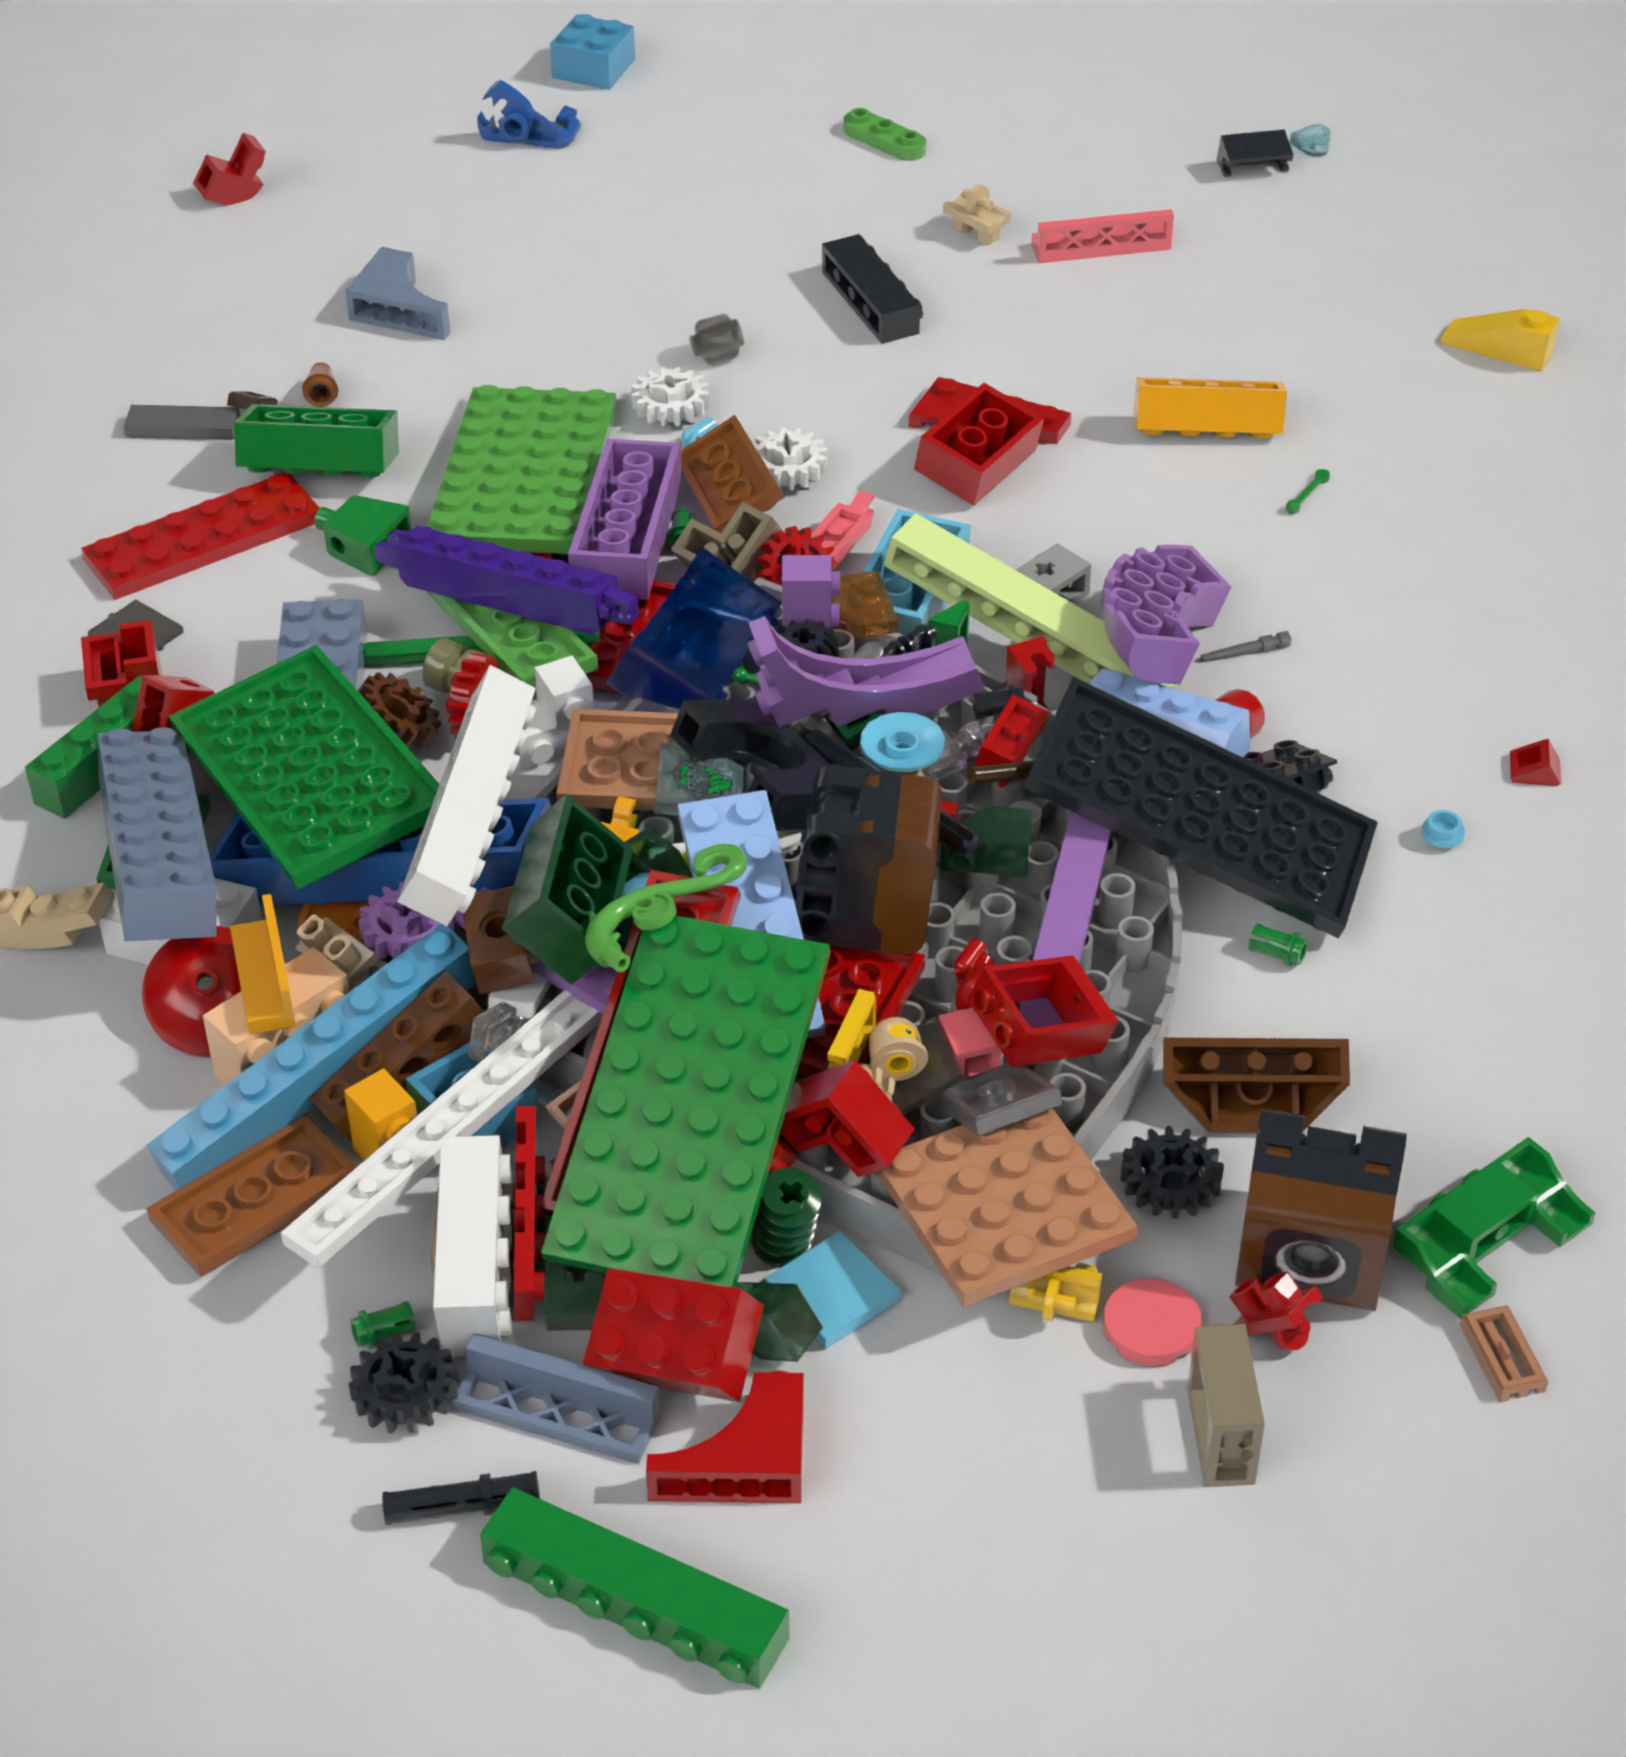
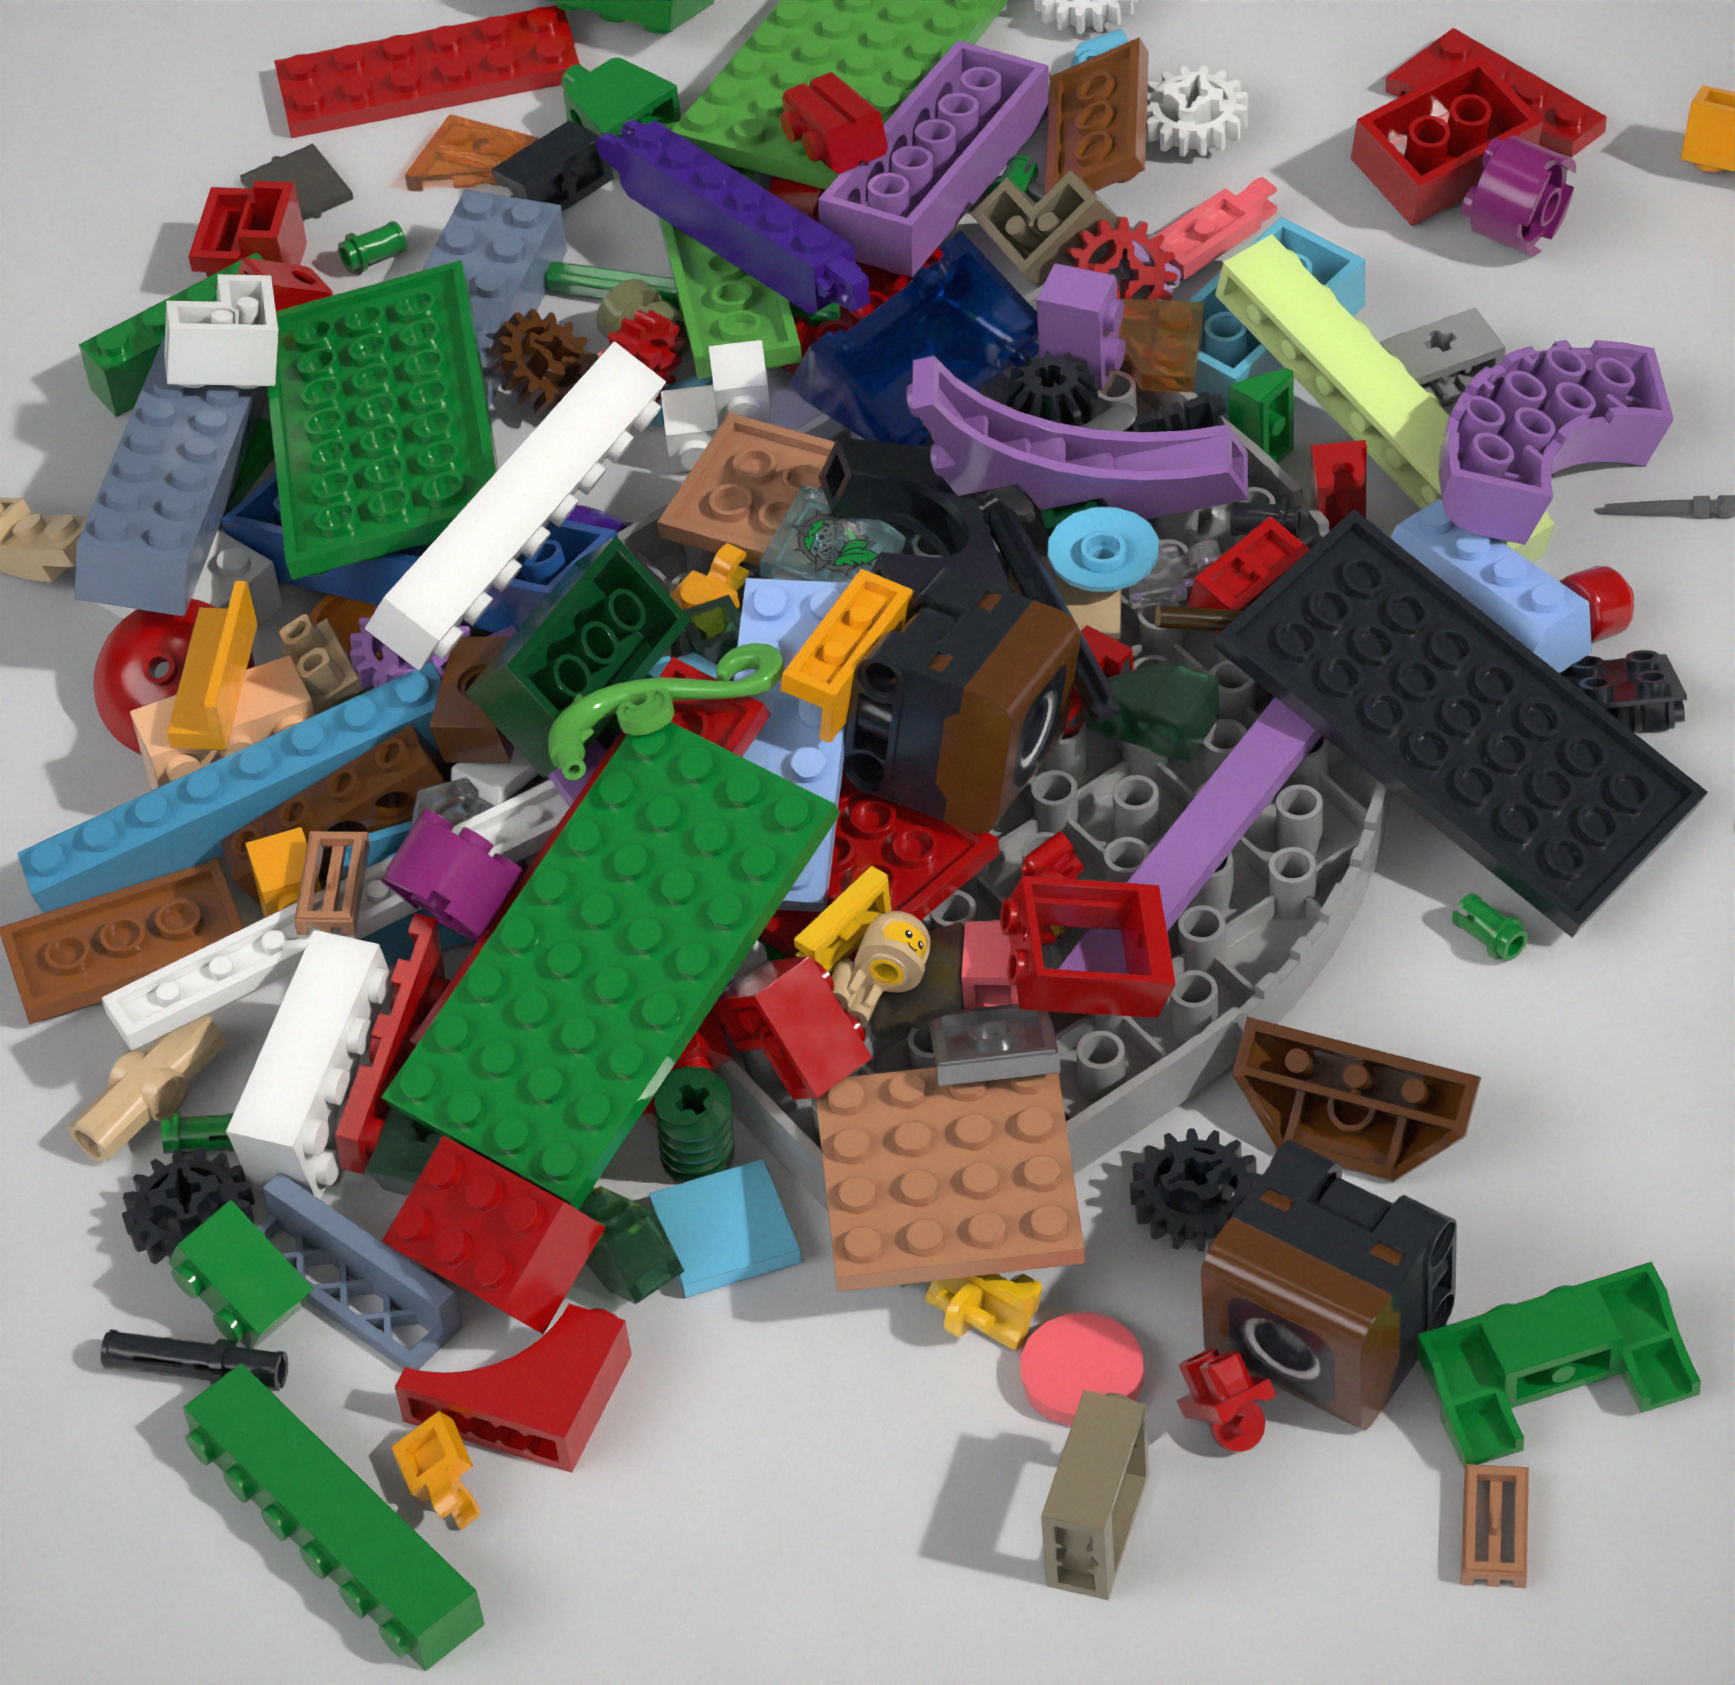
camera: 25 degrees right, 5 degrees up
(164, 729) = (224, 339): none -> white brick
(211, 664) = (371, 246): none -> green pin
(266, 584) = (465, 153): none -> clear orange wing
(322, 1302) = (146, 1087): none -> tan piece
(339, 574) = (556, 167): none -> black hinge
(438, 1128) = (328, 917): none -> nougat tile
(477, 1421) = (239, 1276): none -> green brick
(535, 1070) = (451, 875): none -> magenta brick
(556, 501) = (833, 123): none -> red brick
(697, 1524) = (431, 1464): none -> light orange plate
(782, 832) = (827, 661): none -> light orange panel
(1048, 467) = (1520, 194): none -> magenta brick

